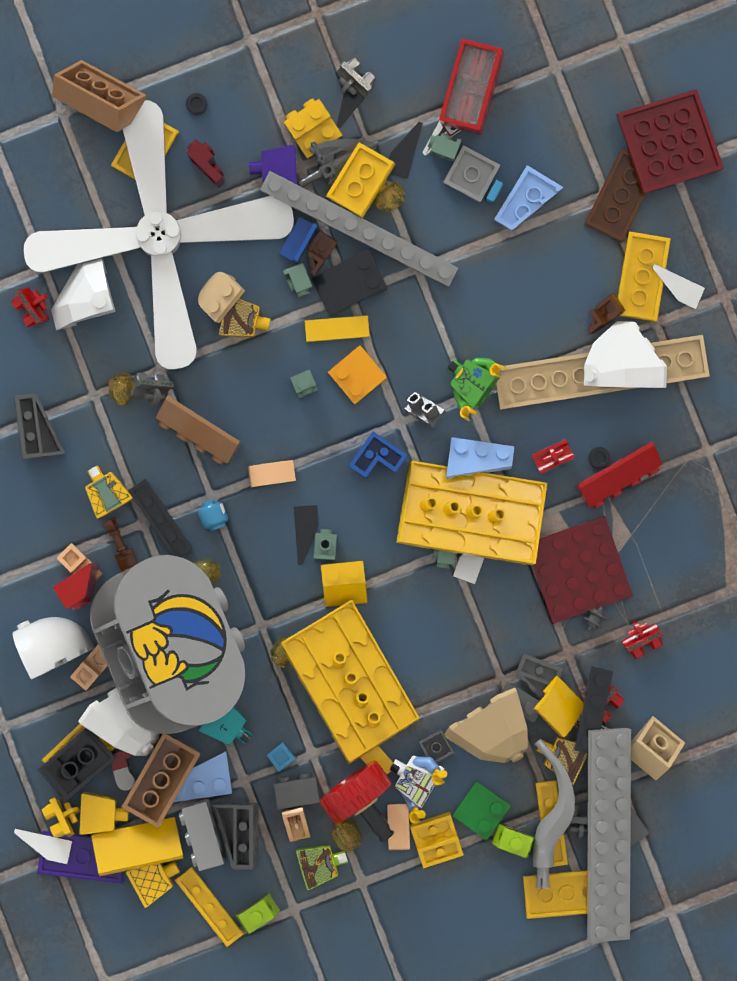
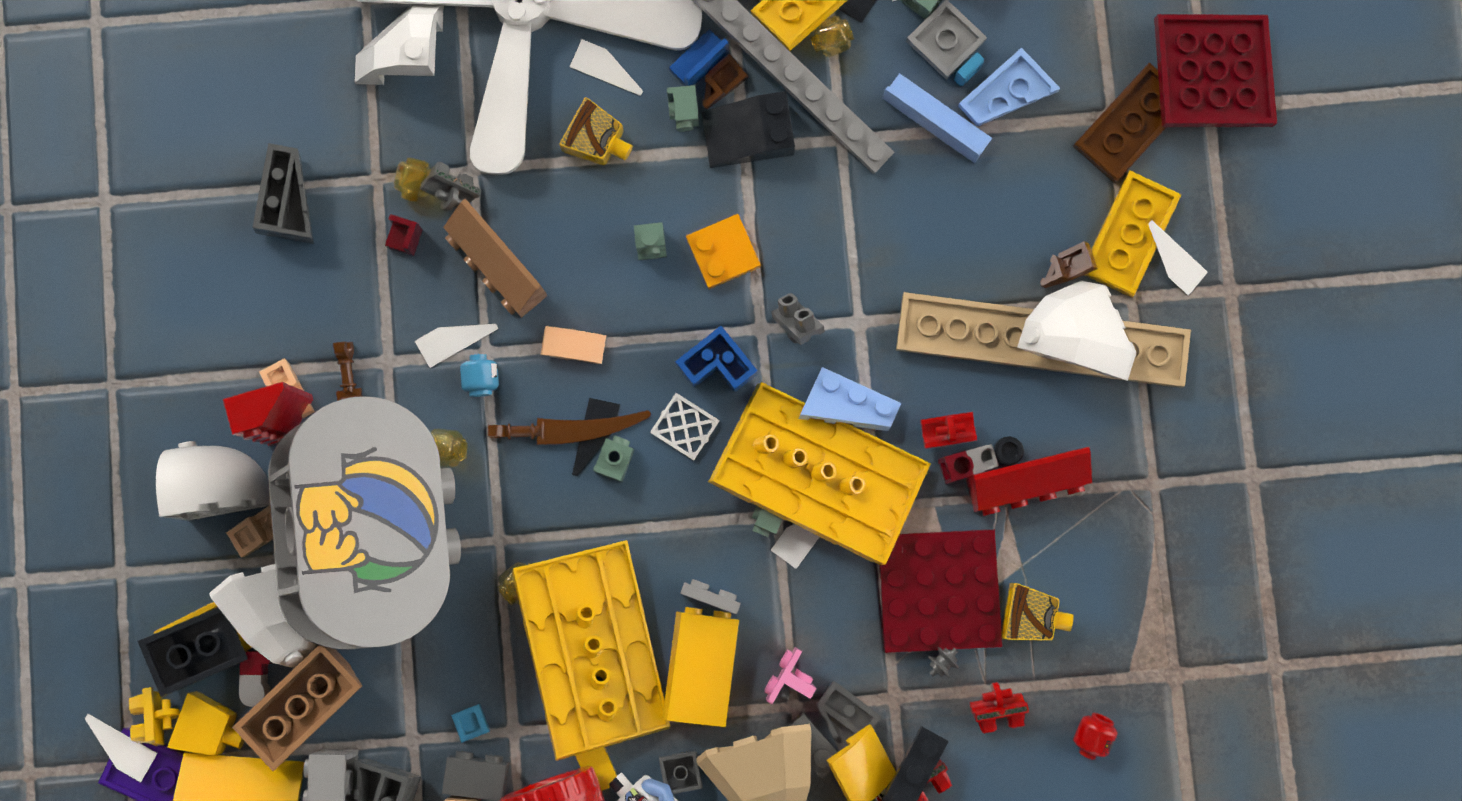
camera: 20 degrees right, 5 degrees down
(34, 305) = (335, 41): red hips -> none
(106, 492) = (350, 306): torso -> none
(127, 431) = (403, 235): none -> dark red panel
(160, 519) = (410, 361): black plate -> none
(180, 497) = (449, 340): none -> white sticker
(207, 780) = (362, 724): light blue wing -> none
(219, 295) = (575, 96): tan slope -> none
(228, 728) = (411, 660): teal torso -> none
(230, 264) = (602, 65): none -> white sticker
(286, 535) = (567, 431): none -> reddish brown sword
(337, 328) = (714, 185): yellow tile -> none
(344, 583) = (623, 515): yellow slope -> none
(383, 512) = (665, 414): none -> white window
(429, 671) = (700, 667): none -> yellow brick
(430, 621) = (699, 591): none -> light grey plate
(473, 382) = (872, 303): bright green torso -> none
(481, 233) = (936, 118): none -> light blue panel
(498, 660) = (798, 681): none -> bright pink bracket
(573, 475) = (967, 463): none -> leg
(647, 568) = (1032, 615): none -> torso
(713, 637) = (1095, 736): none -> red head

